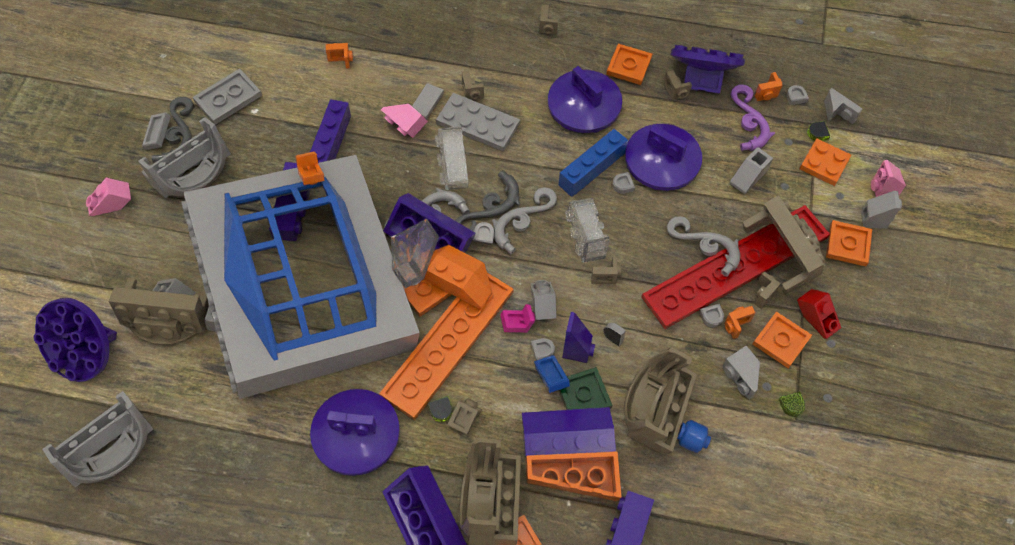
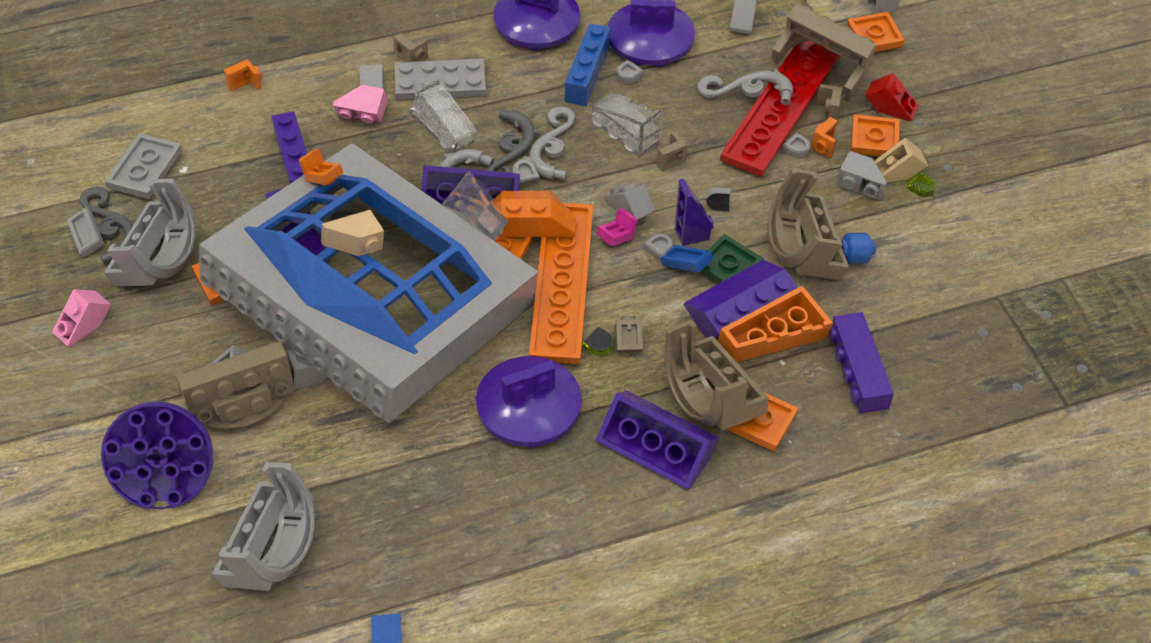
camera: 30 degrees left, 10 degrees down
(285, 242) = (354, 234): none -> tan slope
(784, 375) = (901, 162): none -> tan slope

